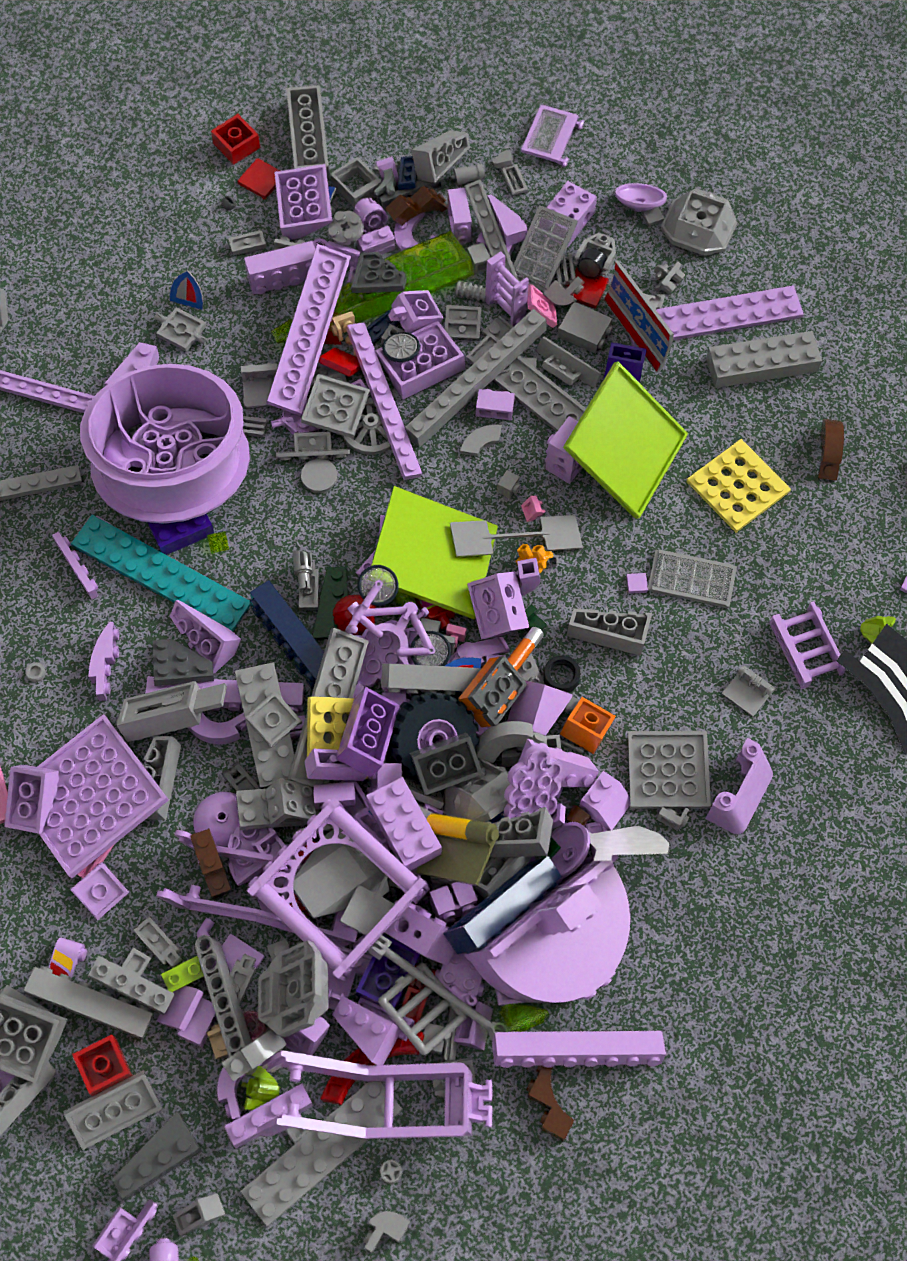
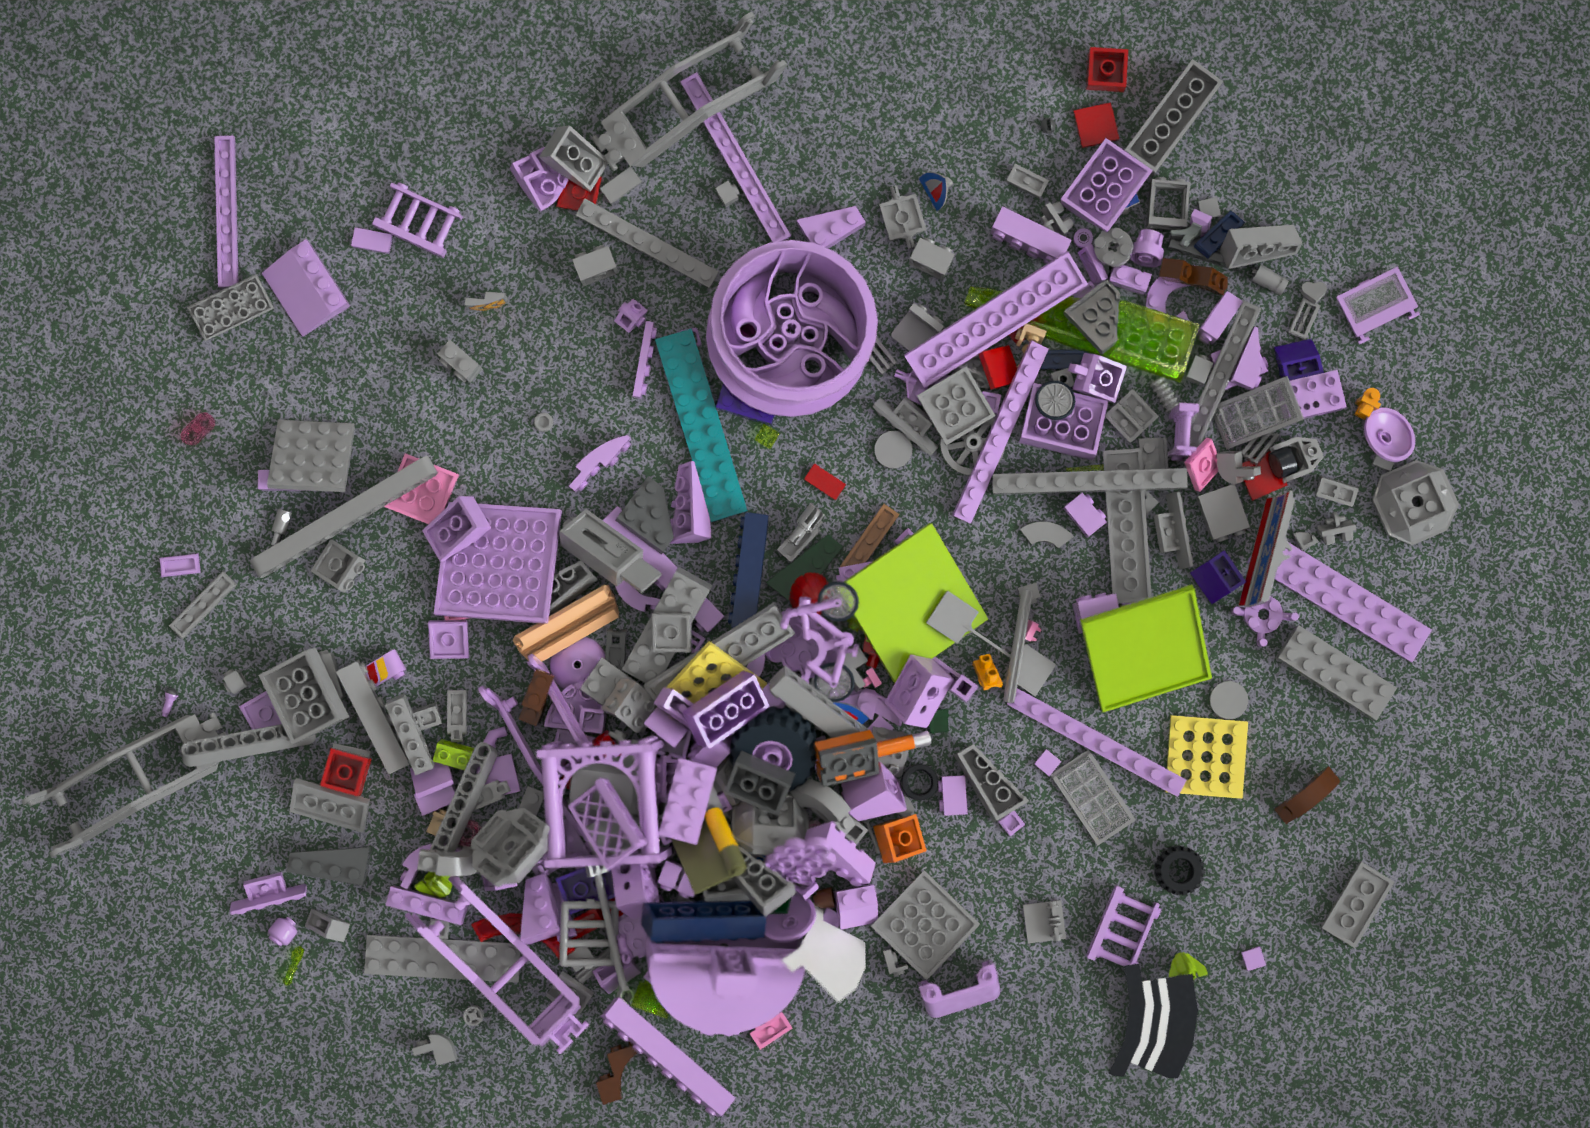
camera: 50 degrees right, 20 degrees up
(37, 411) = (727, 193): none -> light grey plate
(37, 542) = (631, 315): none -> lavender brick
(186, 795) = (569, 624): none -> light nougat piece
(226, 333) = (931, 258): none -> light grey brick
(290, 536) = (824, 481): none -> red tile
(356, 876) = (617, 811): none -> lavender fence
(359, 538) = (871, 537): none -> medium nougat plate
(535, 196) = (1298, 360): none -> dark purple slope
(537, 520) = (1018, 646): none -> light grey axle
(595, 661) = (953, 795): none -> lavender brick
(607, 190) = (1367, 403): none -> light orange hips
(635, 956) = (770, 1030): none -> bright pink plate
(643, 254) = (1336, 491): none -> light grey hinge
(654, 645) = (1011, 823): none -> lavender tile
(655, 538) = (1098, 743): none -> lavender plate
(681, 376) = (1274, 619): none -> lavender plate
(713, 437) = (1228, 700): none -> light grey tile
(801, 583) = (1196, 870): none -> black tyre

